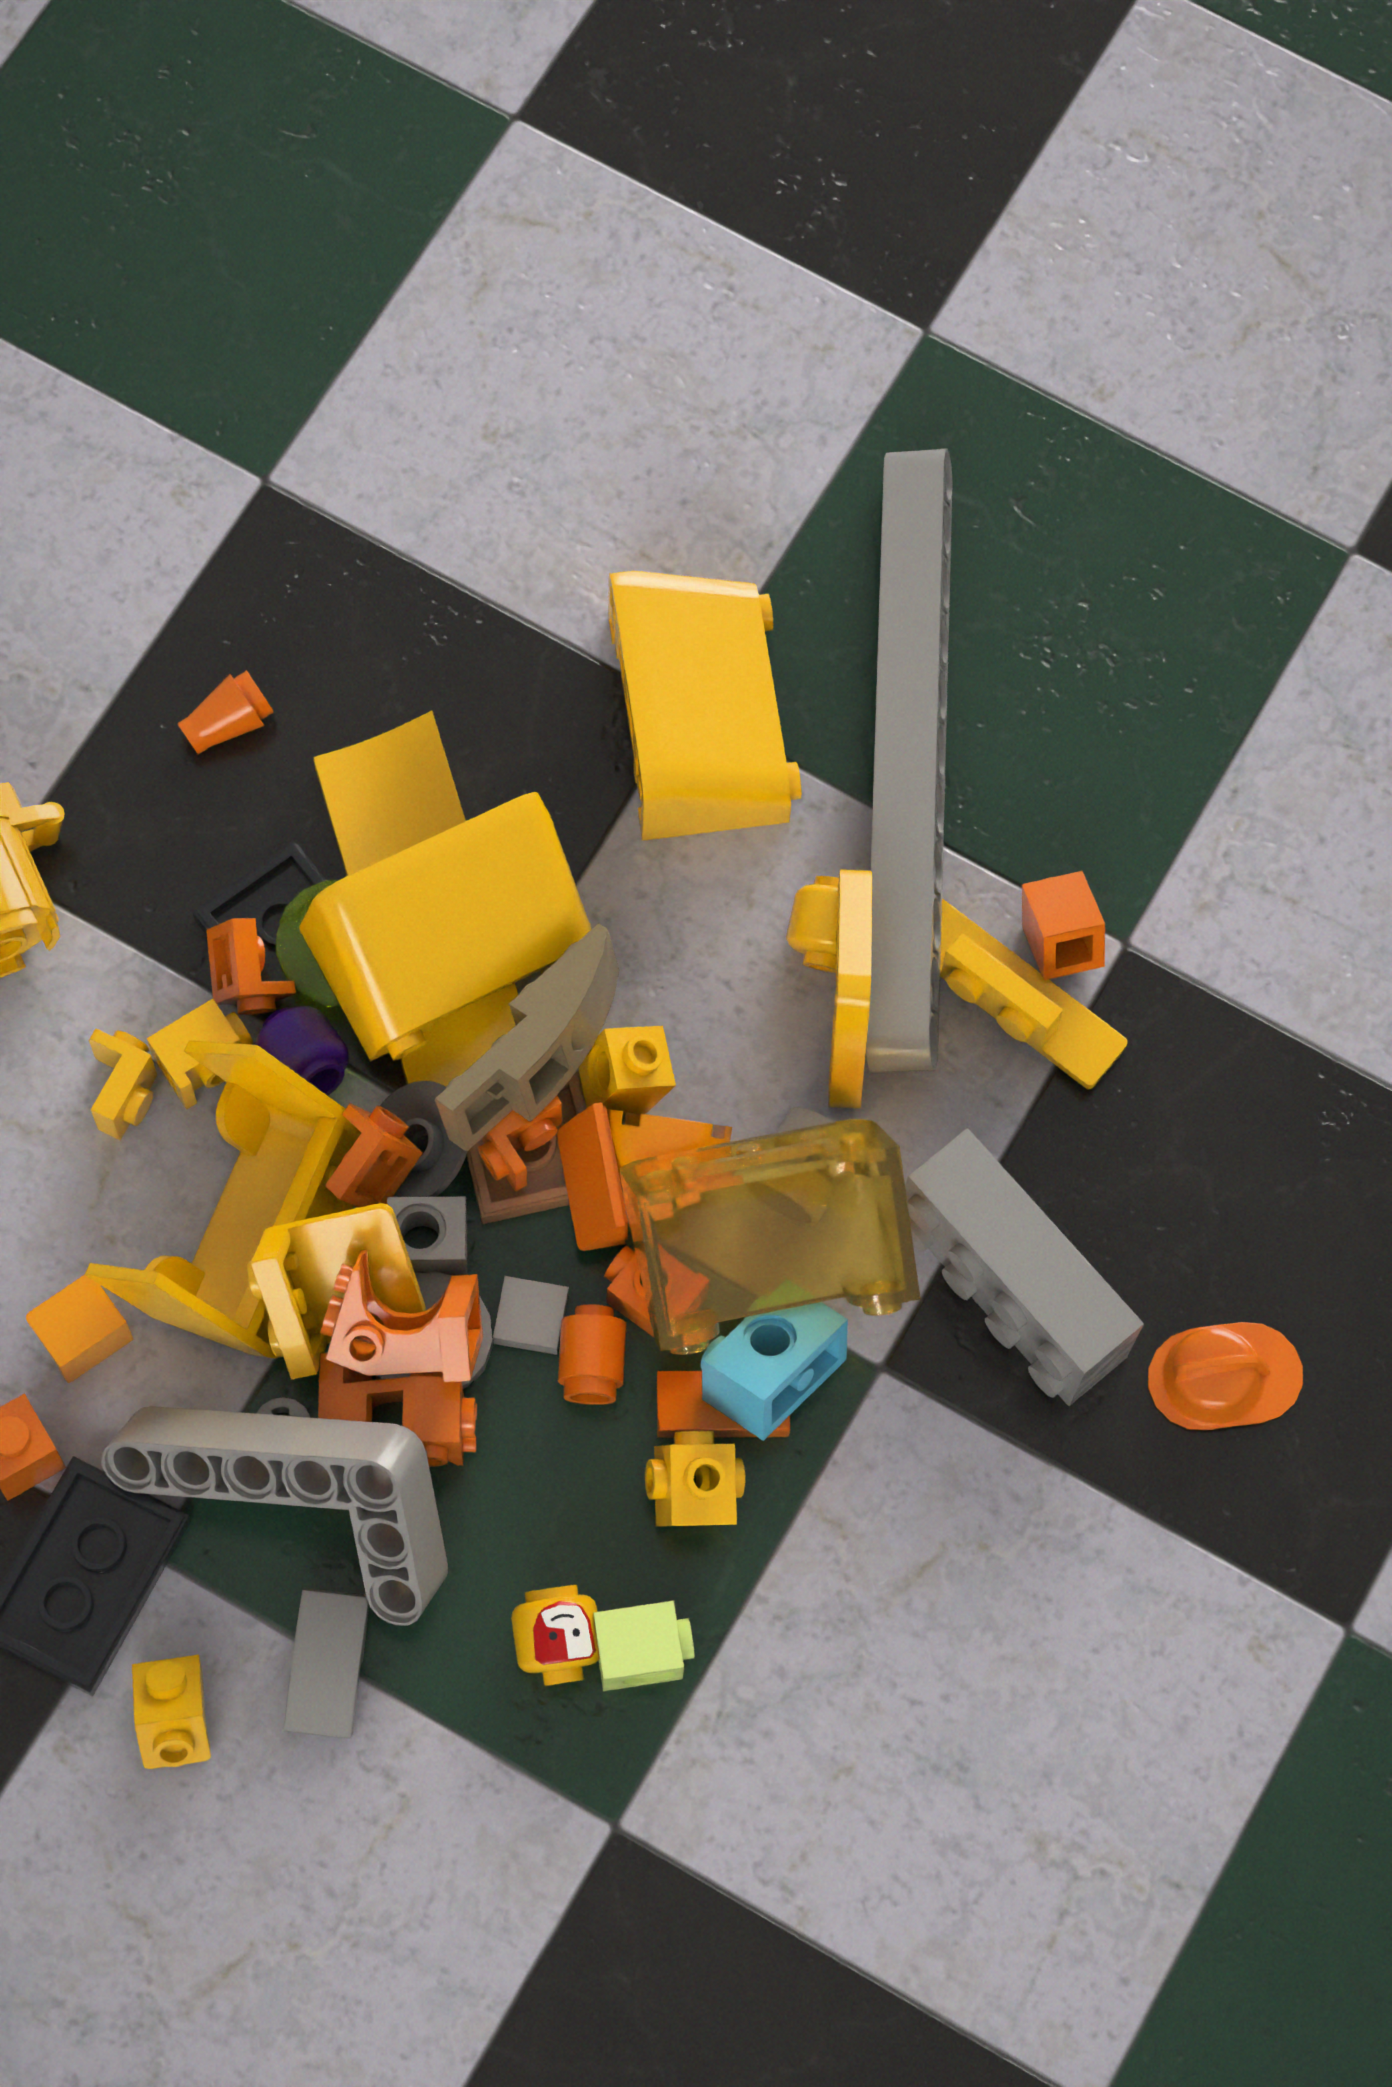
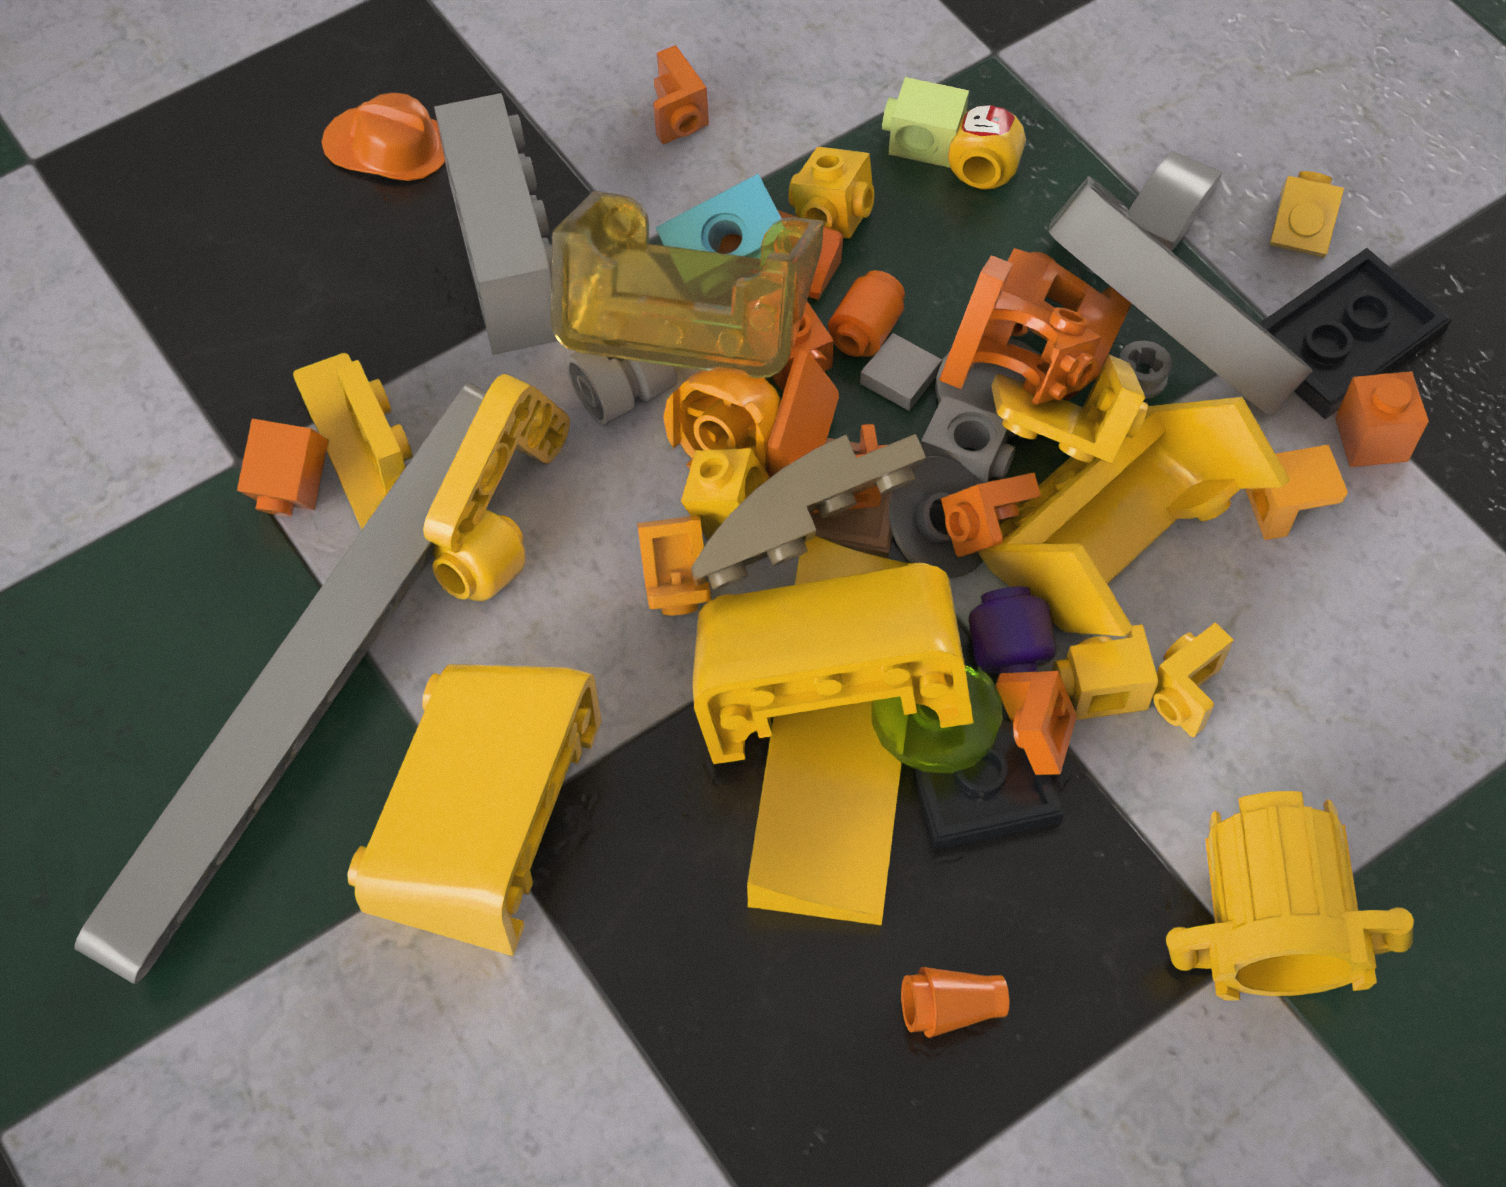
camera: 150 degrees left, 10 degrees down
(647, 987) = (667, 556): none -> light orange bracket
(937, 1568) = (681, 96): none -> orange bracket

